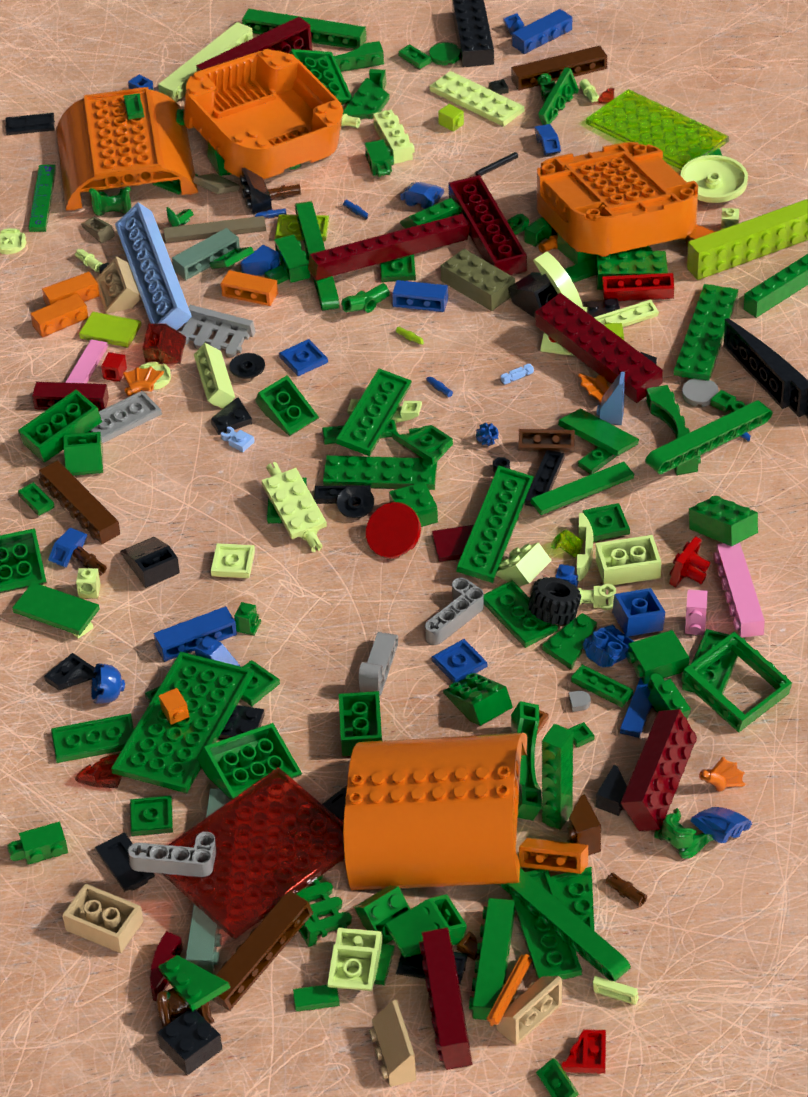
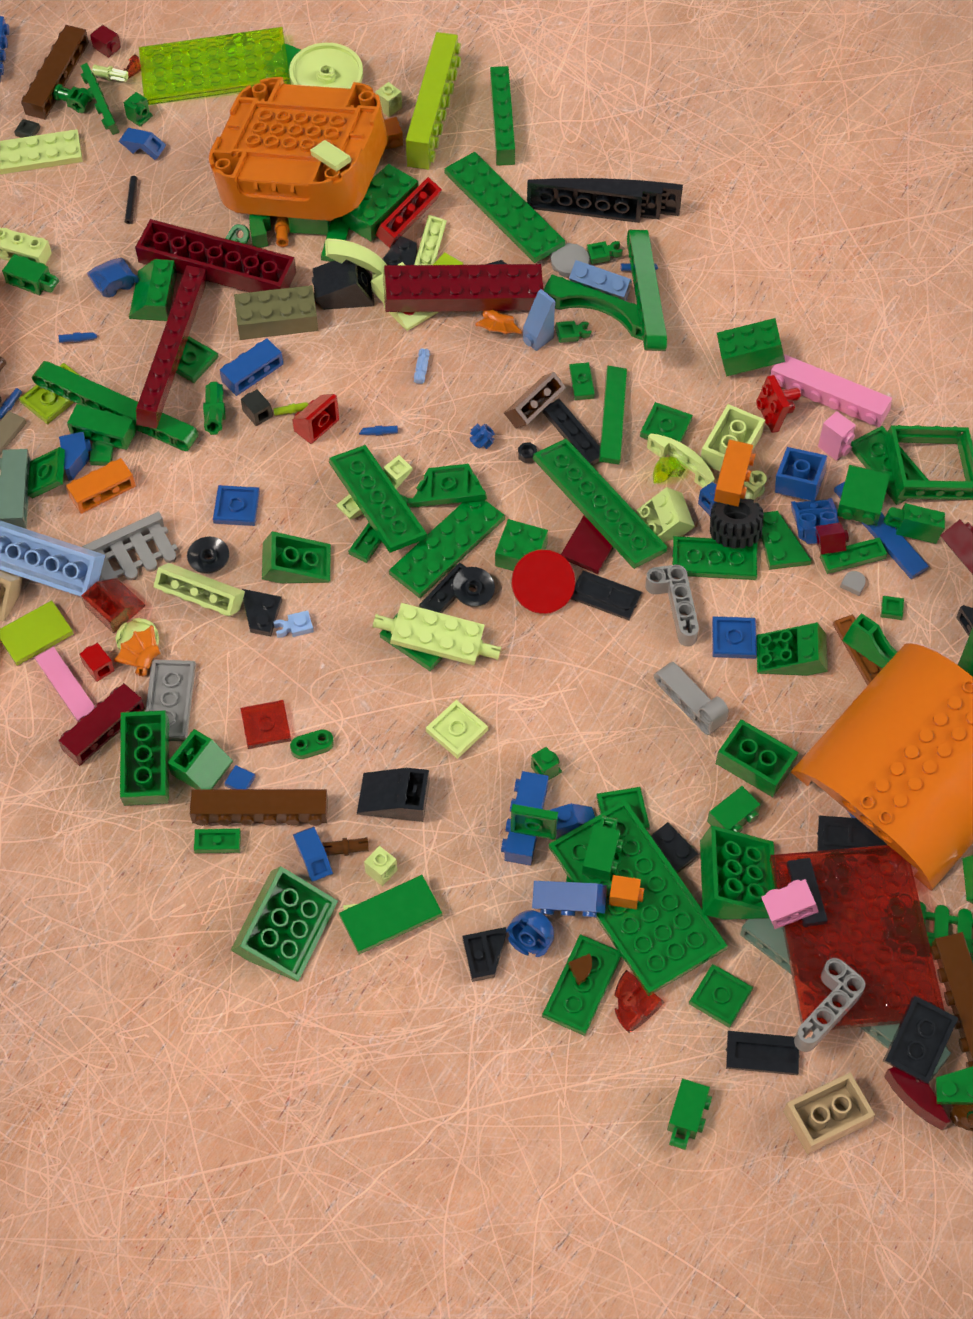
camera: 55 degrees left, 15 degrees up
(93, 483) = (239, 778): none -> blue tile
(101, 725) = (581, 968): none -> reddish brown tile
(144, 683) = (569, 898): none -> brick
(147, 471) = (265, 724): none -> clear red tile
(153, 500) = (312, 744): none -> green plate
(181, 625) = (534, 821): none -> green tile
(198, 675) = (602, 850): none -> green brick
(198, 927) = (920, 1039): none -> black plate
(237, 789) = (789, 903): none -> bright pink brick
(263, 800) = (803, 869): none -> black tile
(305, 738) = (735, 811): none -> green brick
(389, 317) = (256, 407): none -> pearl dark grey brick
(410, 349) = (316, 417): none -> red slope
(424, 574) = (606, 595): none -> black piece
(451, 117) = (34, 188): lime brick -> none
(572, 119) = (137, 109): none -> green brick
(586, 566) = (734, 473): none -> orange brick
(597, 659) = (831, 538): none -> dark red brick
(598, 432) = (554, 358): green tile -> none
(605, 202) = (330, 155): none -> yellowish green tile
(613, 72) = (105, 41): none -> dark red brick
(635, 427) = (570, 332): none -> green plate
(690, 408) = (601, 280): none -> medium blue brick

